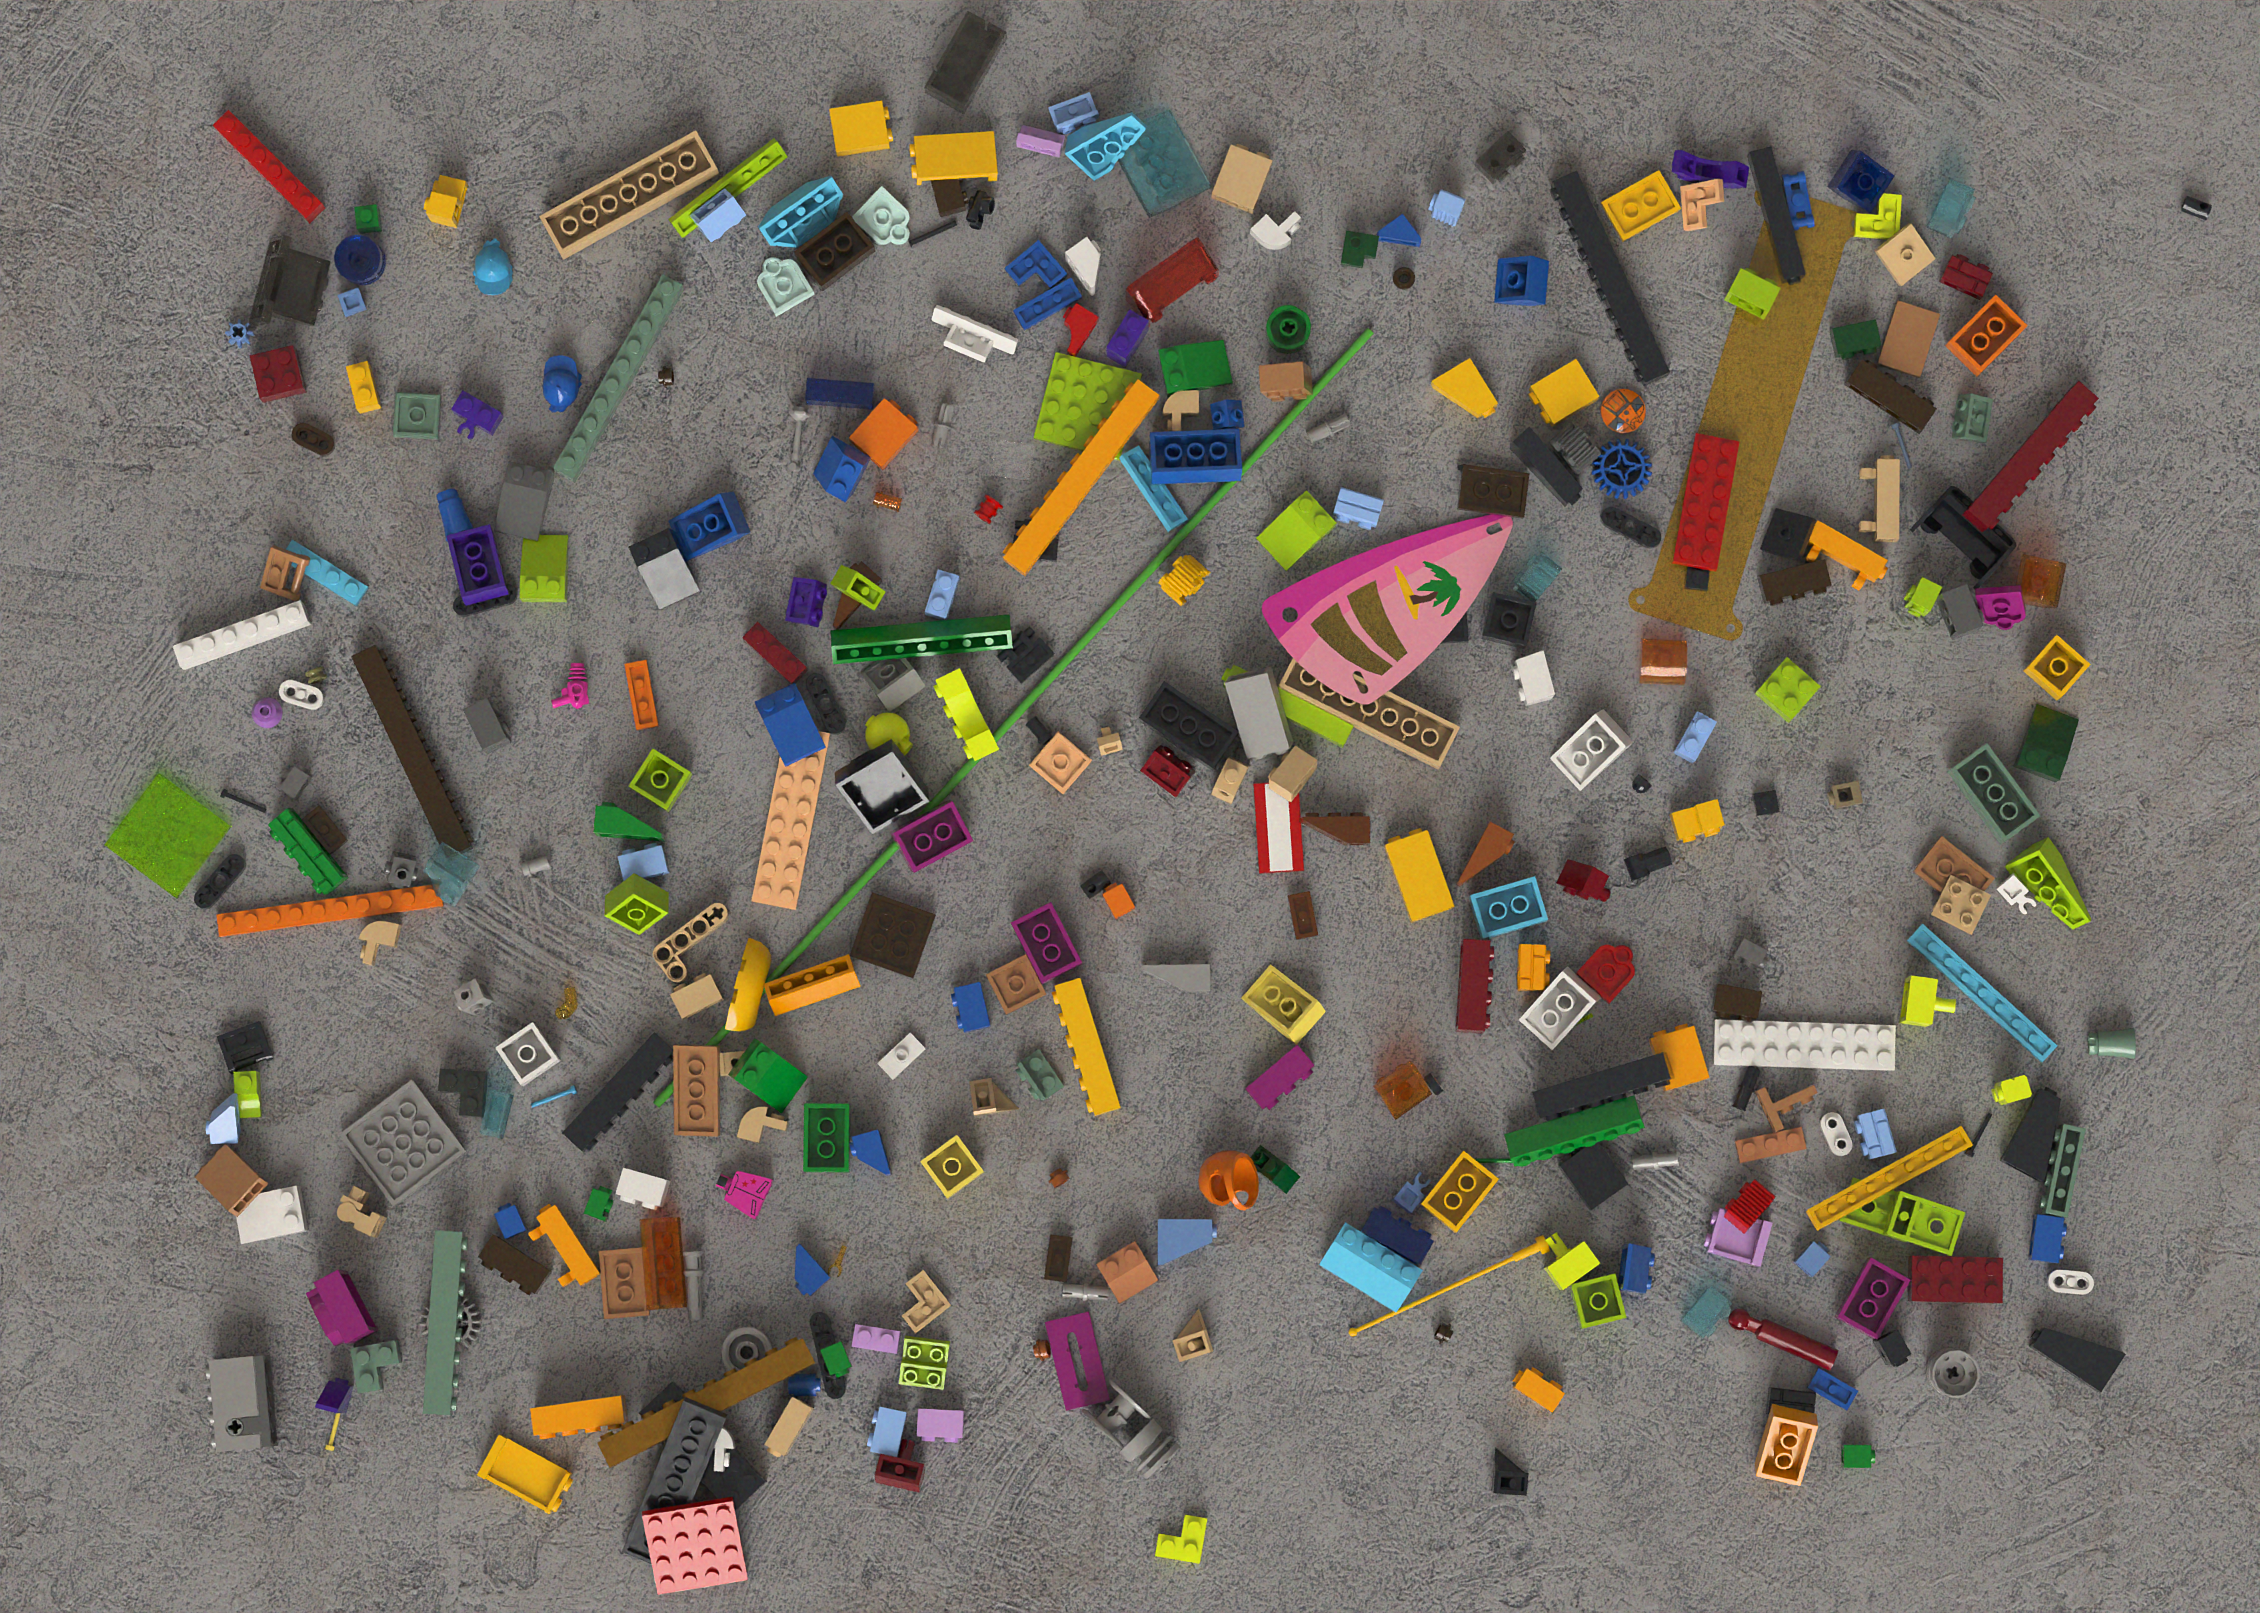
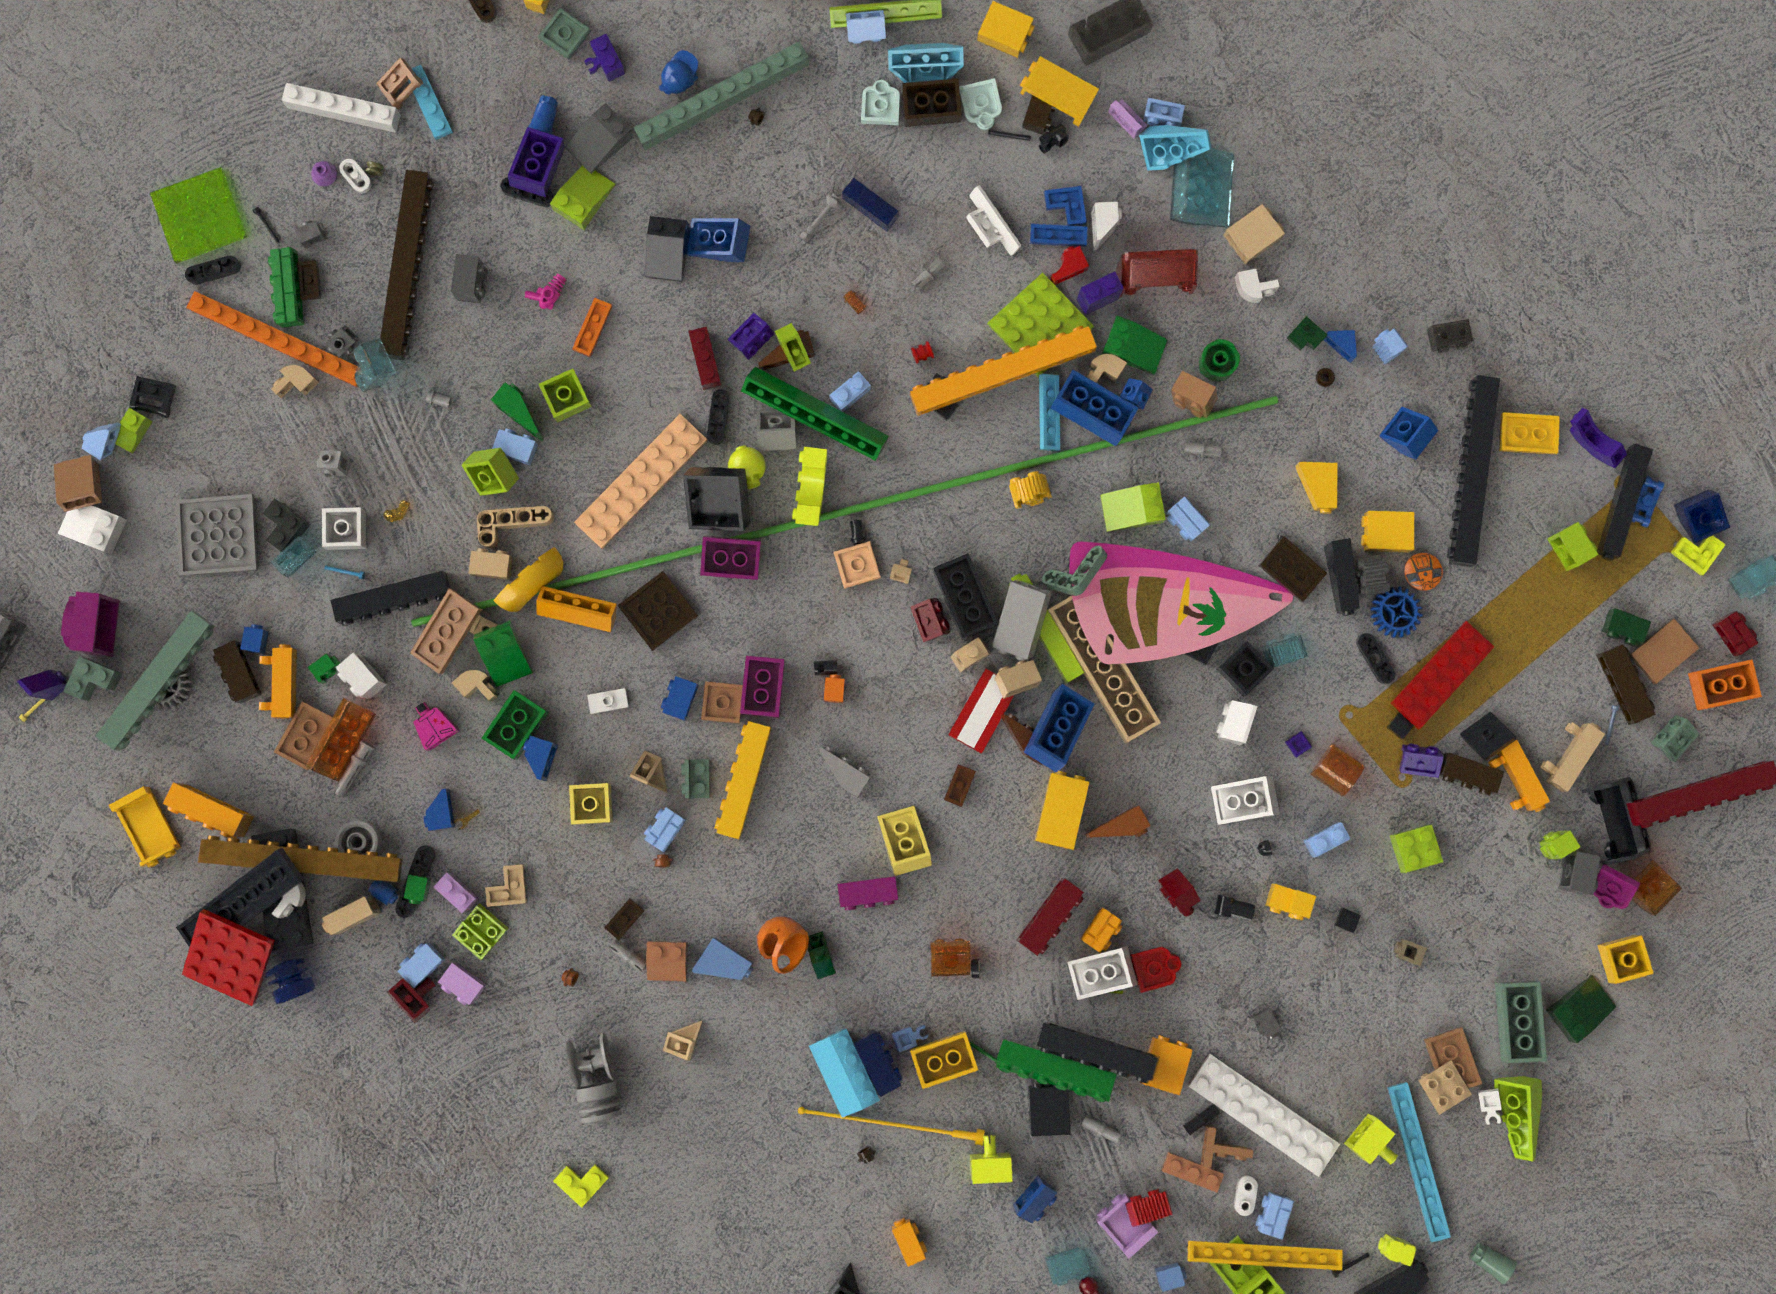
camera: 30 degrees right, 0 degrees up
(352, 1212) = (148, 561): tan hips -> none
(770, 1528) = (289, 980): none -> clear blue wheel
(790, 724) = (682, 413): blue slope -> none
(841, 468) = (836, 257): blue slope -> none
(884, 433) = (883, 252): orange brick -> none
(1029, 660) = (882, 478): black plate -> none
(1040, 1145) = (664, 829): none -> light blue brick
(1057, 1334) = (609, 980): magenta piece -> none
(1291, 609) = (1080, 580): none -> sand green beam
(1364, 796) = (1059, 728): none -> blue brick
(1508, 908) = (1111, 876): medium azure brick -> none
(1597, 1301) = (993, 1206): lime brick -> none
(1608, 661) = (1298, 744): none -> dark purple tile
(1694, 202) = (1573, 452): light nougat plate -> none
(1736, 1002) = (1234, 1051): dark brown brick -> none
(1738, 600) = (1421, 760): none -> dark purple bracket
(1905, 254) = (1701, 589): tan plate -> none

